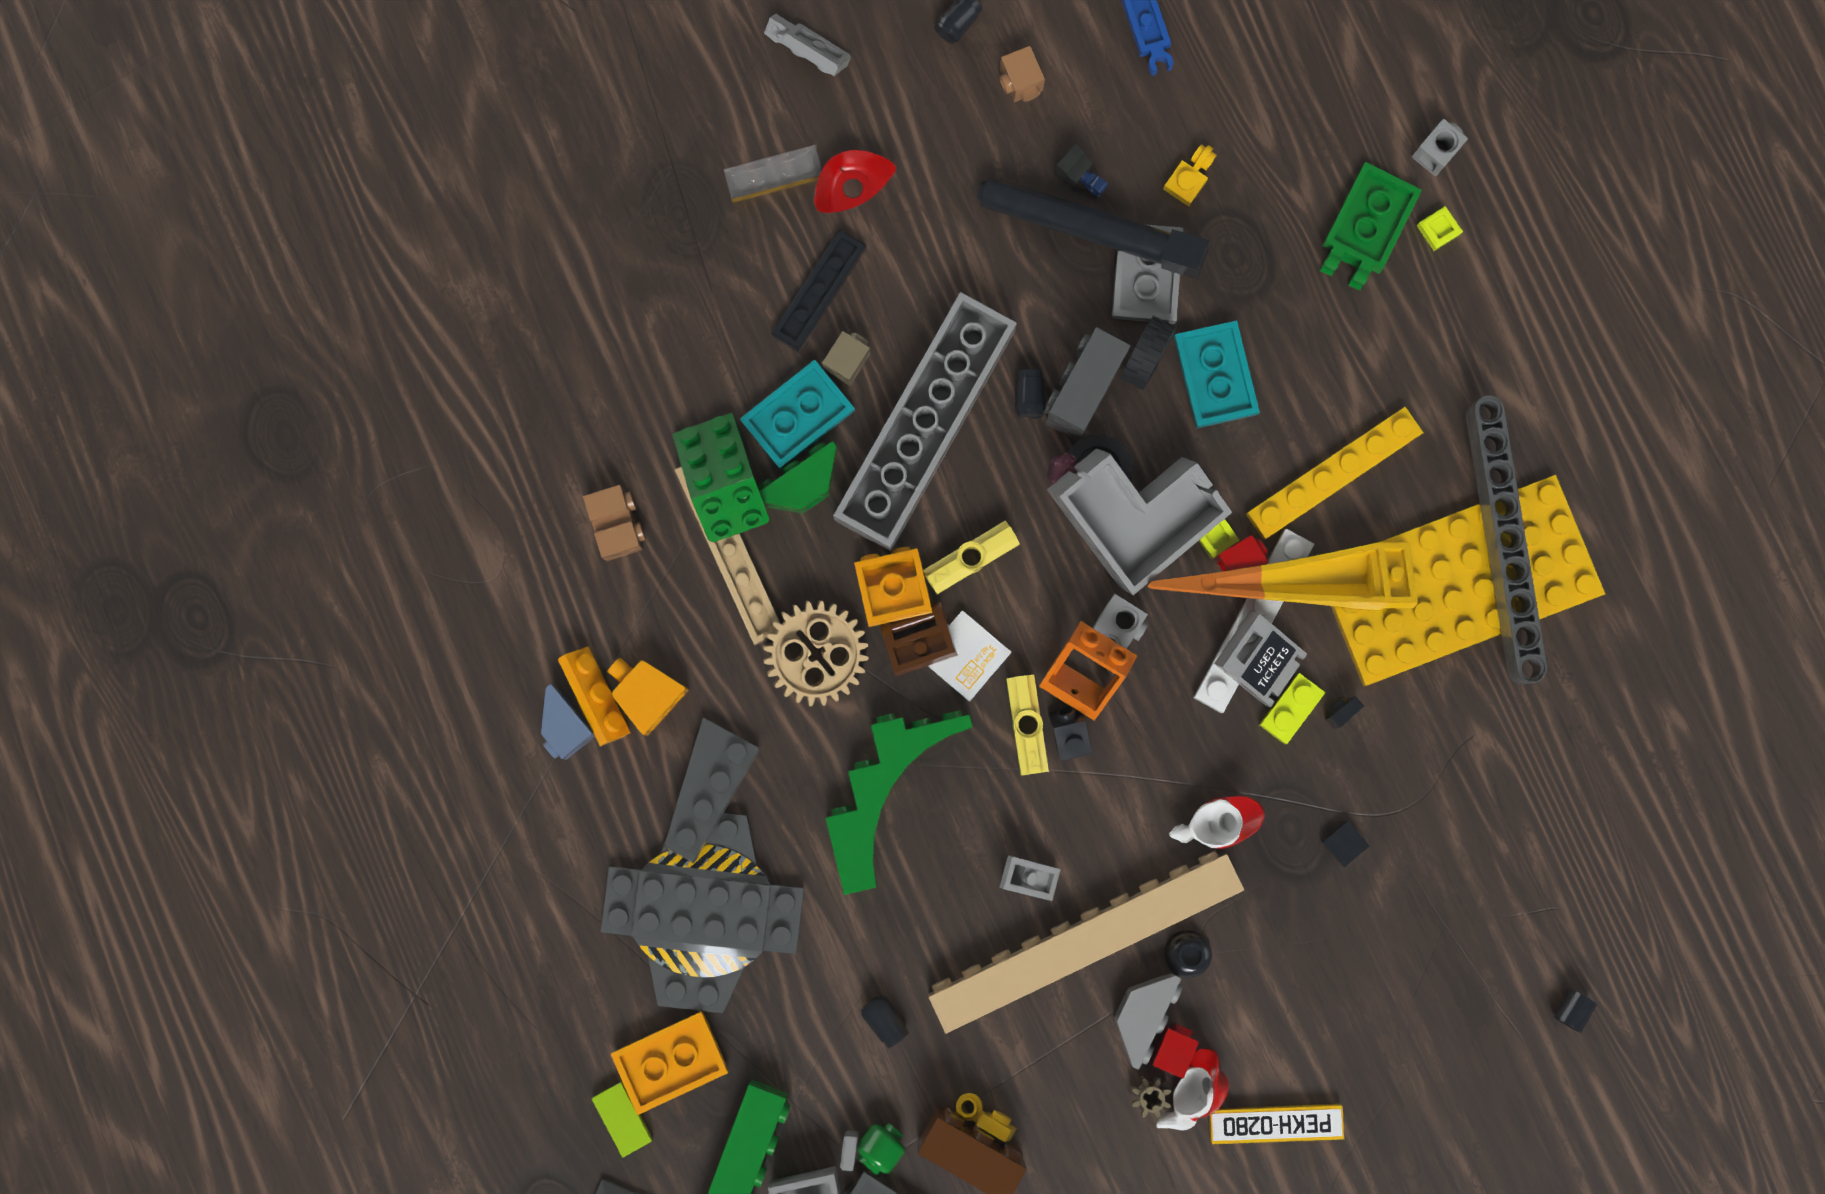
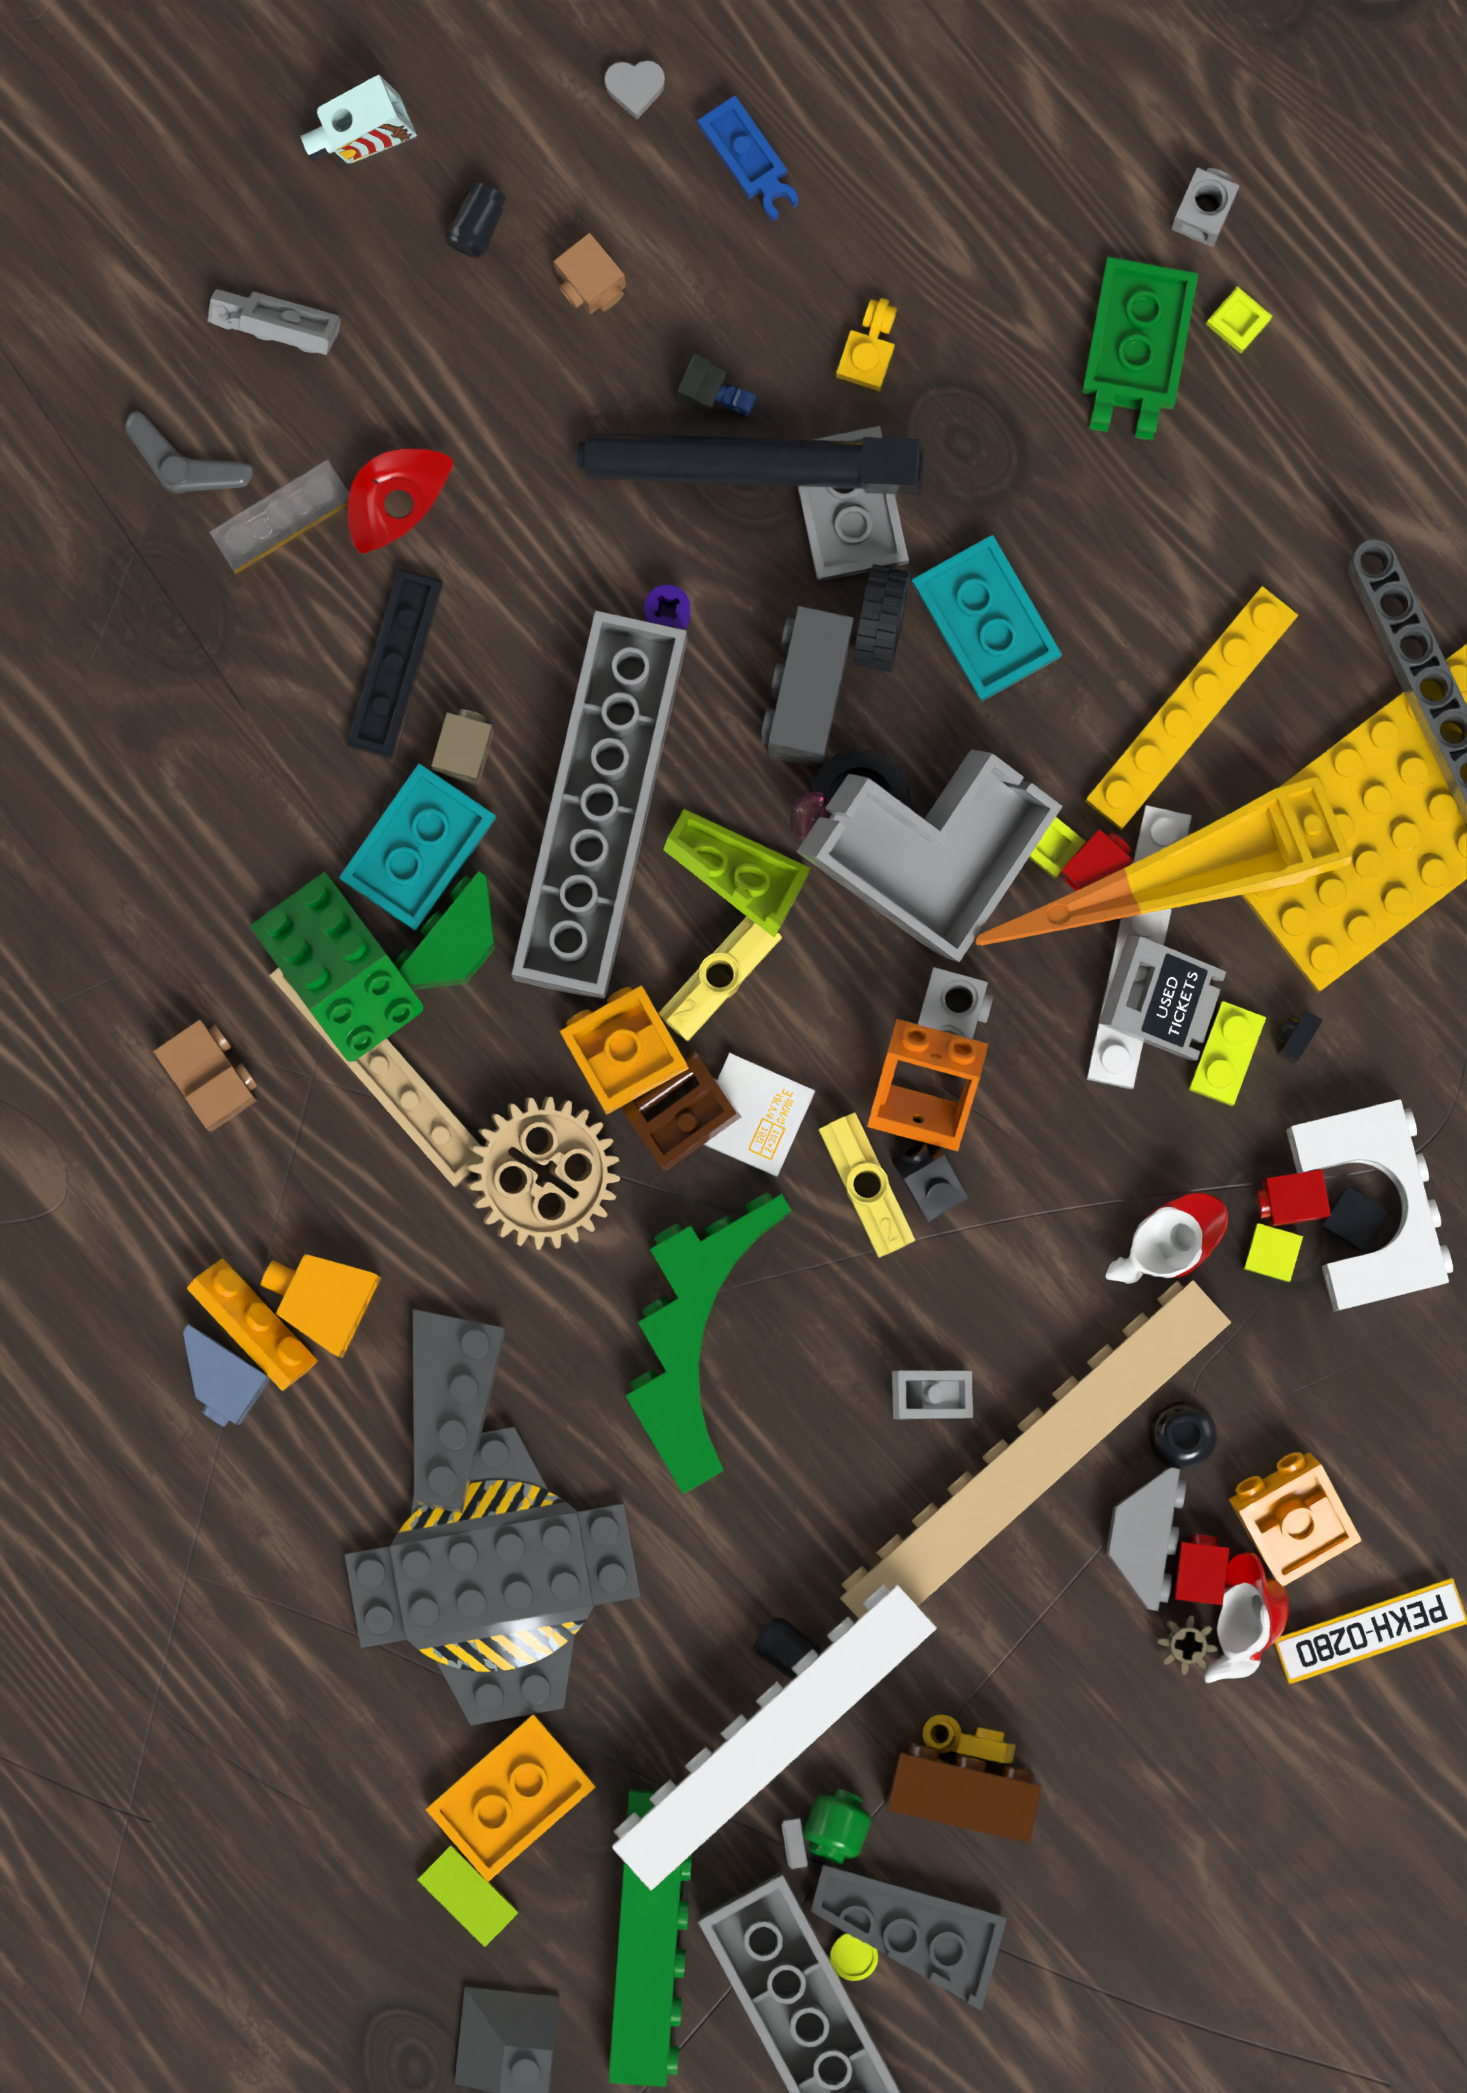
camera: 15 degrees left, 0 degrees up
(717, 127) = (180, 473): none -> dark grey piece
(855, 1078) = (773, 1736): none -> white brick
(1004, 491) = (738, 869): none -> lime wing
(1012, 312) = (669, 615): none -> dark purple wheel
(1029, 394) = (734, 723): black piece -> none
(1247, 1032) = (1294, 1517): none -> plate
(1284, 850) = (1273, 1252): none -> neon yellow tile
(1309, 818) = (1293, 1198): none -> red brick
(1378, 880) = (1382, 1140): none -> white arch

